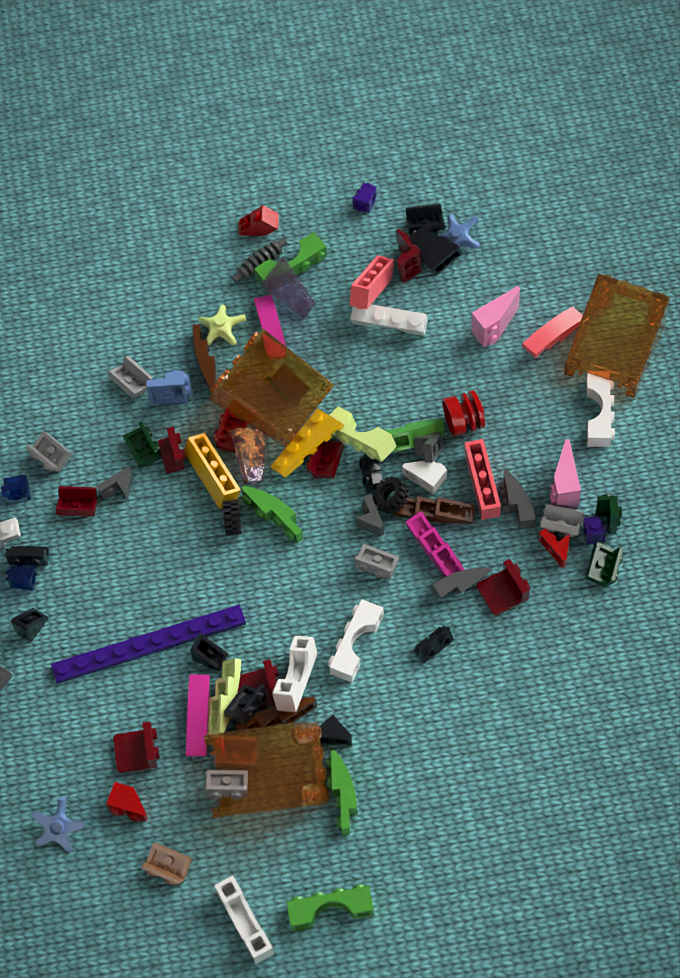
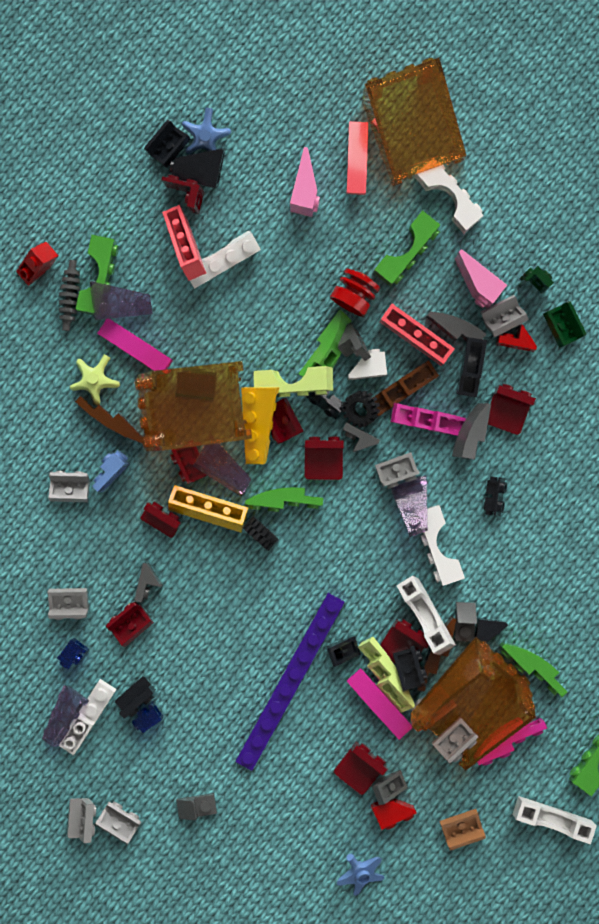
camera: 50 degrees left, 25 degrees up
(29, 623) = (189, 746): black slope -> none
(141, 445) = (133, 535): dark green bracket -> none
(143, 781) = (389, 787): none -> dark grey slope
(260, 826) = (533, 728): none -> dark pink slope
(323, 710) = (466, 619): none -> dark grey slope
(331, 508) = (324, 458): none -> dark red bracket
(363, 590) = (412, 504): none -> clear purple wing
(365, 197) = (99, 164): dark purple brick -> none
(501, 534) = (471, 367): none -> black slope
(509, 423) = (392, 267): none -> bright green arch
(593, 530) = (533, 303): dark purple brick -> none

